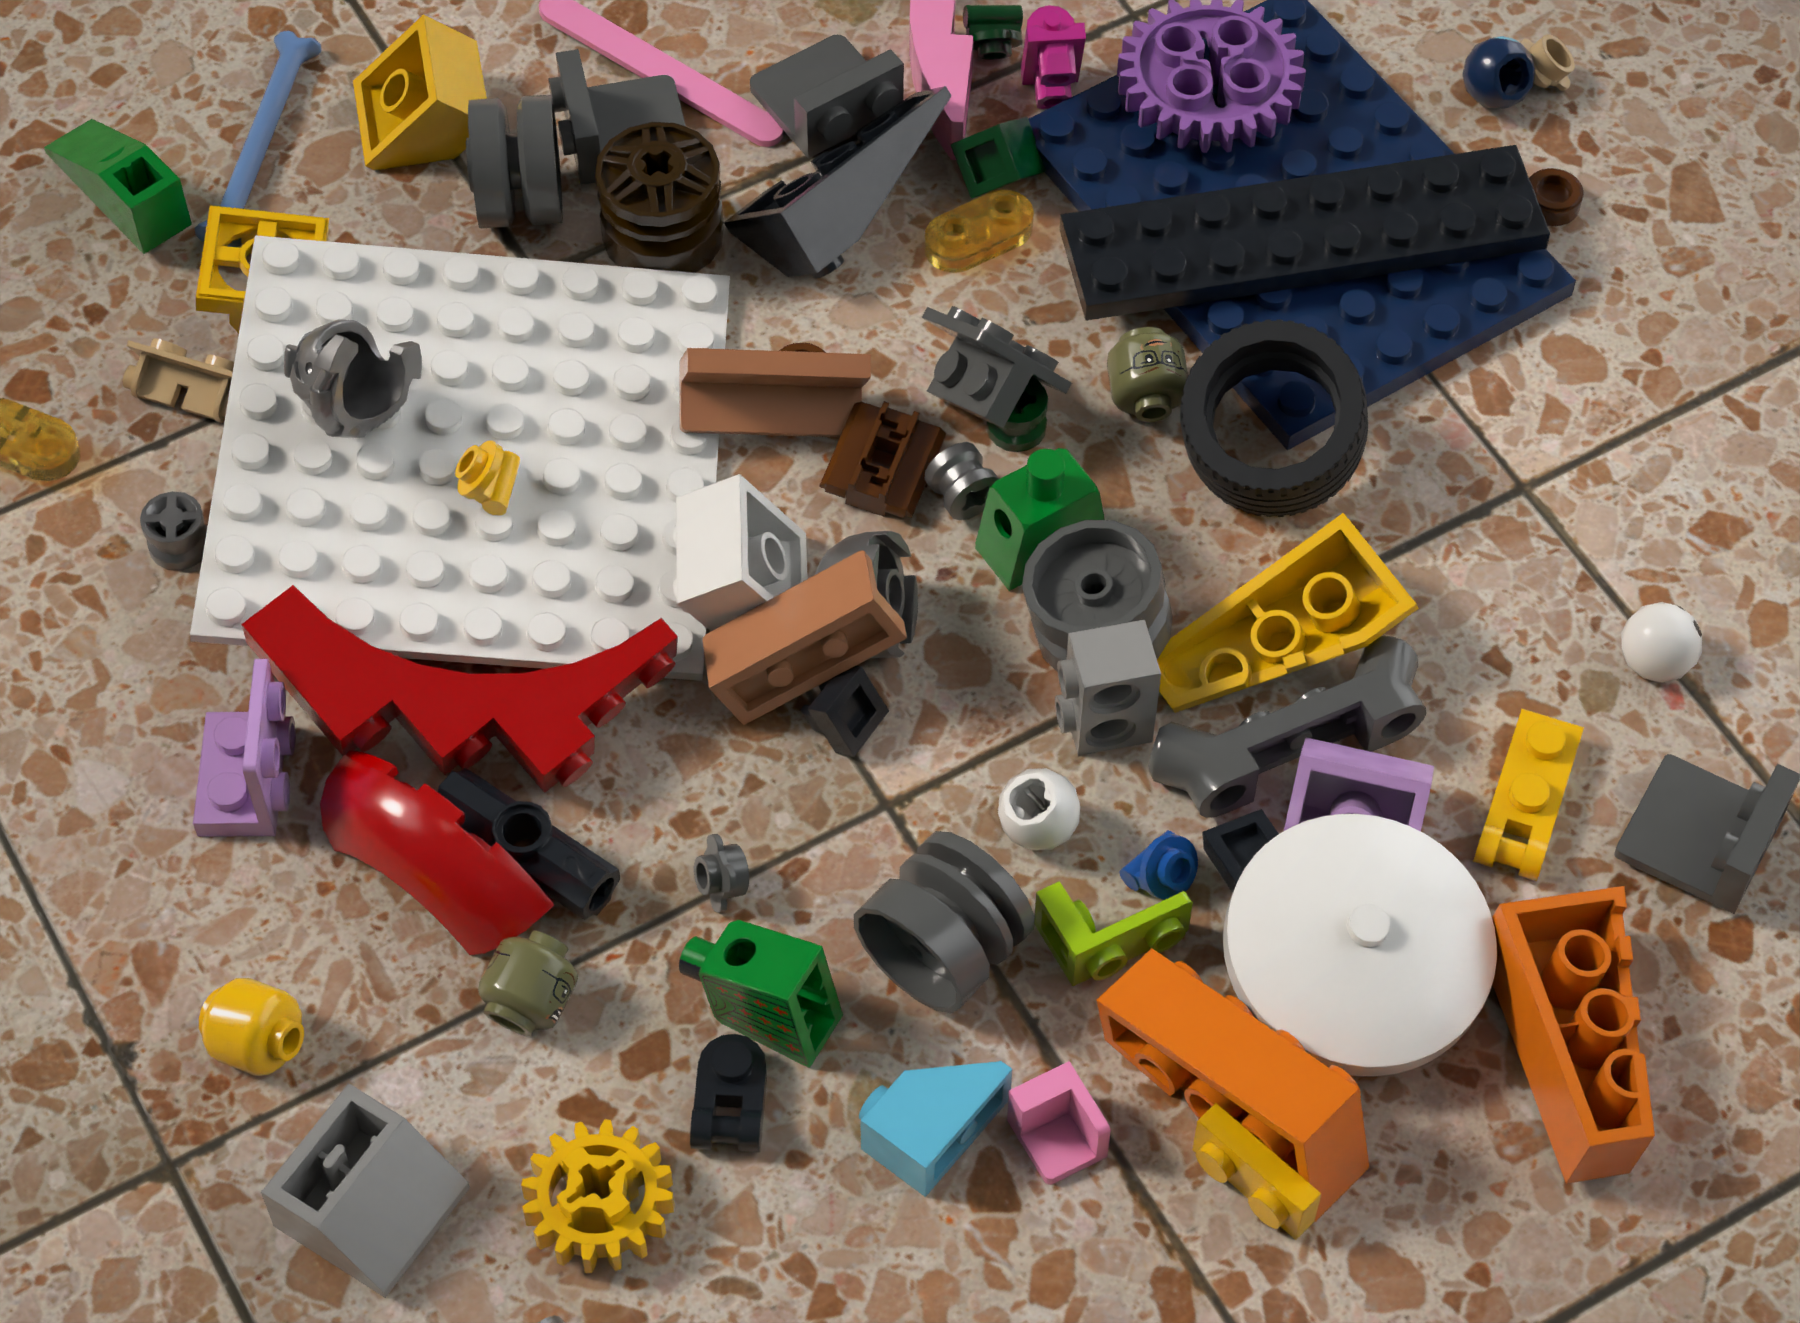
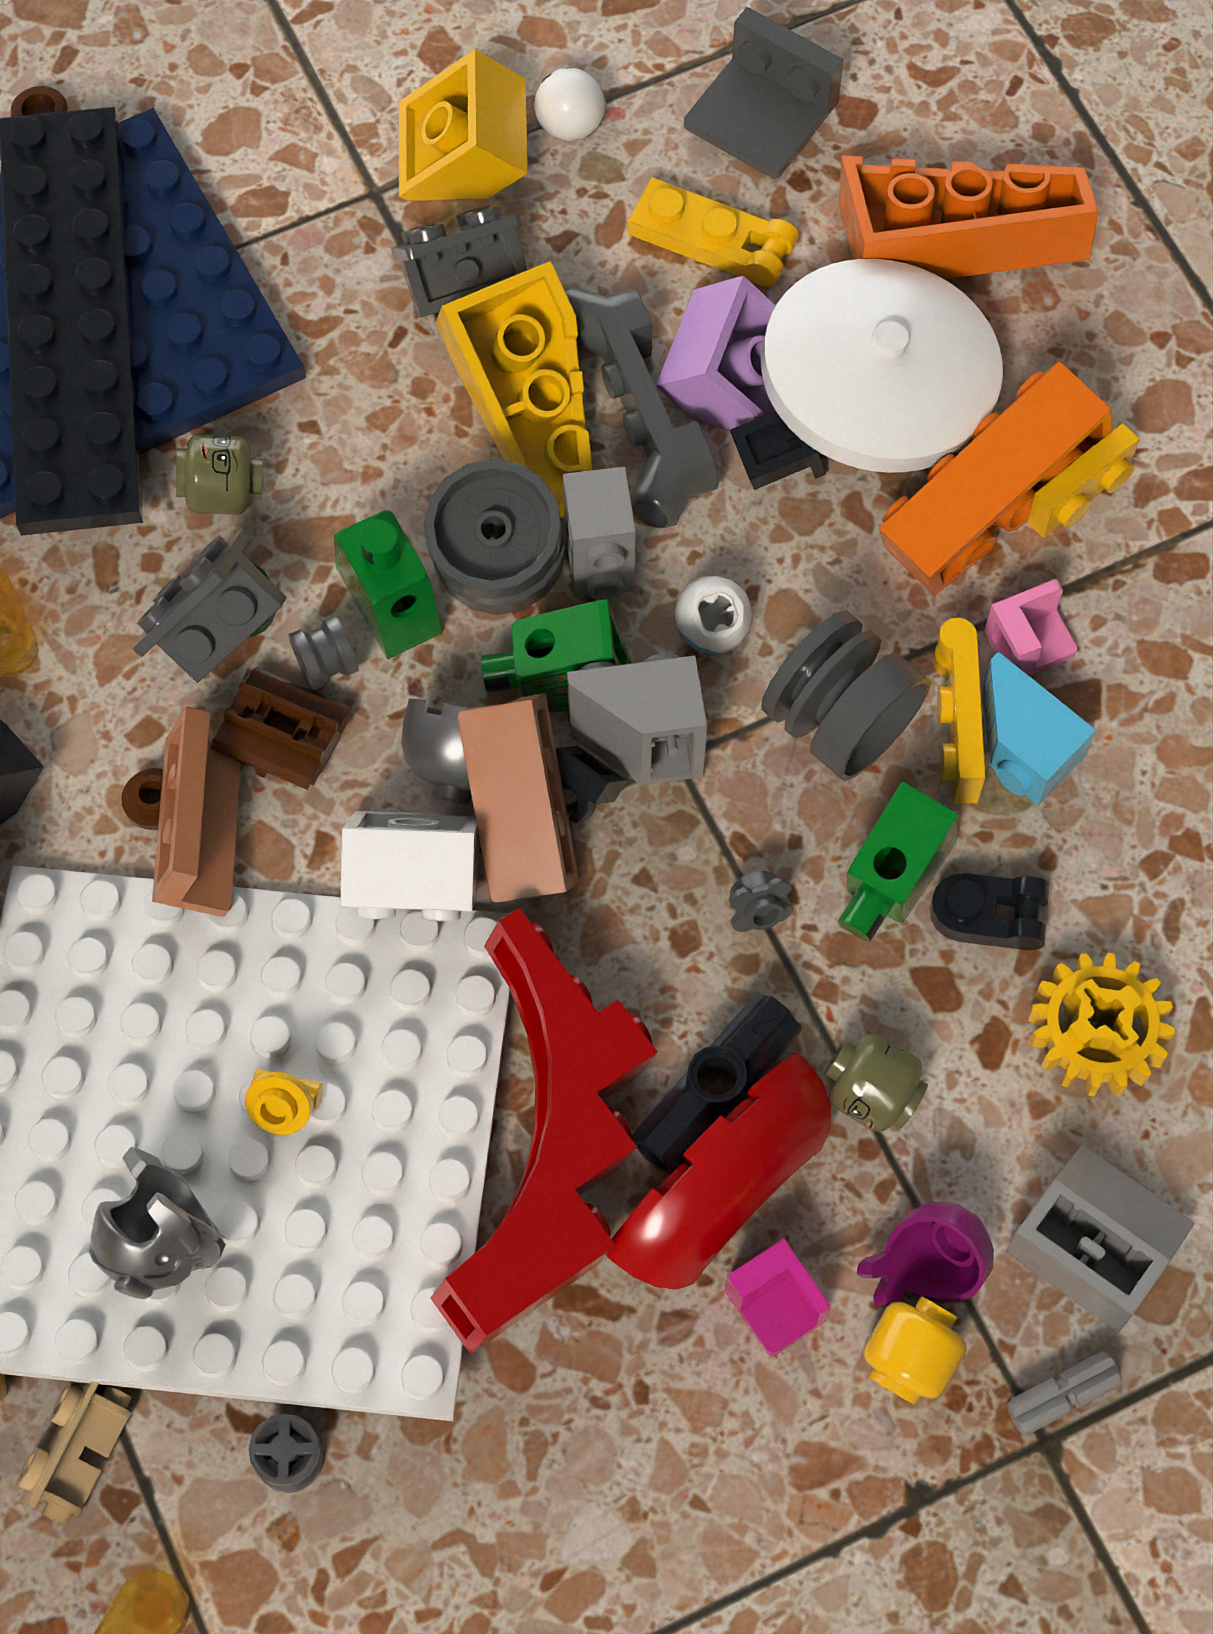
camera: 85 degrees left, 10 degrees up
(212, 1173) = (1053, 1398): none -> light grey piece
(243, 763) = (601, 1362): lavender bracket -> none
(315, 912) = (777, 1298): none -> dark pink panel
(352, 1037) = (932, 1254): none -> magenta piece
(894, 1049) = (961, 708): none -> yellow plate
(904, 743) = (641, 716): none -> light grey slope
(965, 650) = (550, 647): none -> green torso
(1100, 954) = (864, 577): lime bracket -> none
(1163, 867) = (768, 525): blue plate -> none
(1252, 351) = (331, 297): black tyre -> none
(1437, 553) = (459, 260): none -> dark grey bracket
(1601, 550) = (463, 132): none -> yellow slope

